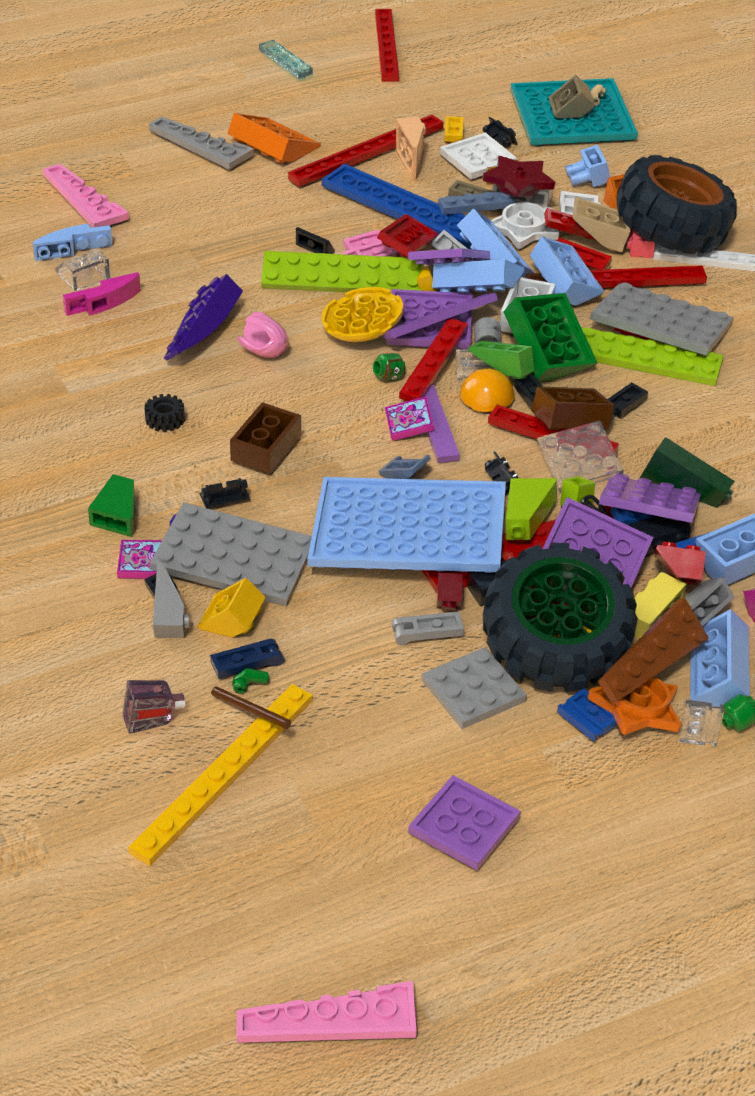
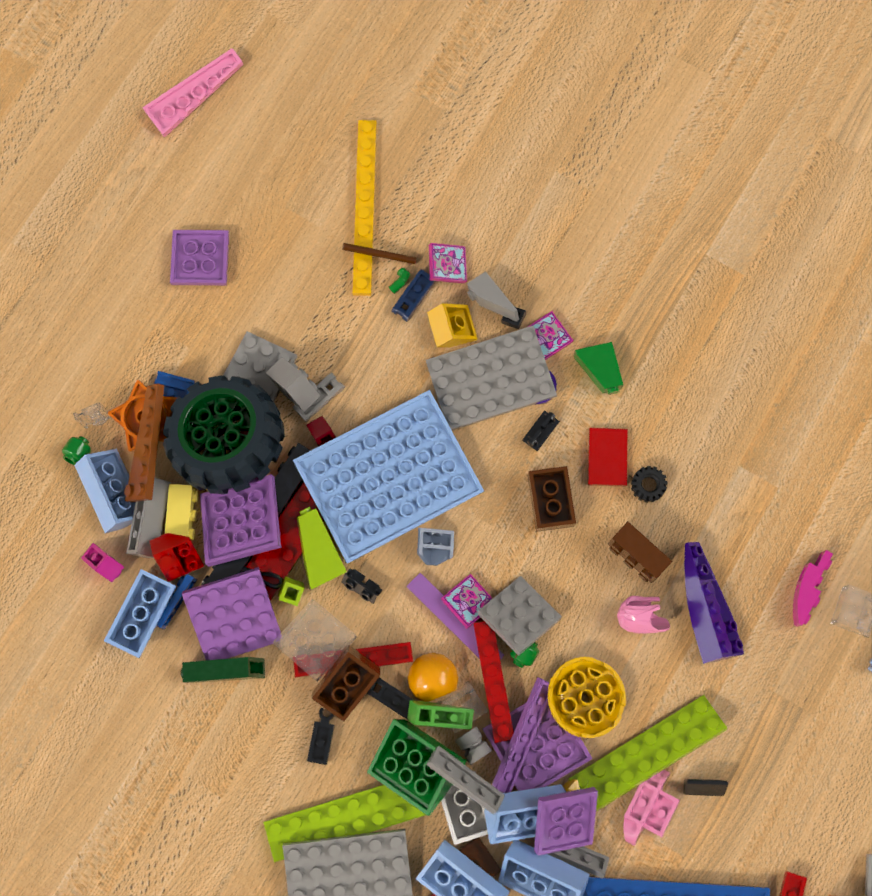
camera: 150 degrees right, 35 degrees up
(149, 704) = (440, 207): torso -> none
(180, 450) = (607, 457): none -> red tile
(184, 661) = (447, 263): none -> tile
(225, 367) = (639, 553): none -> reddish brown brick
(372, 382) = (519, 615): none -> light grey plate
(407, 235) = (625, 837): red plate -> none
(448, 628) = (293, 383): none -> light grey brick
(516, 280) = (465, 780): none -> light grey plate

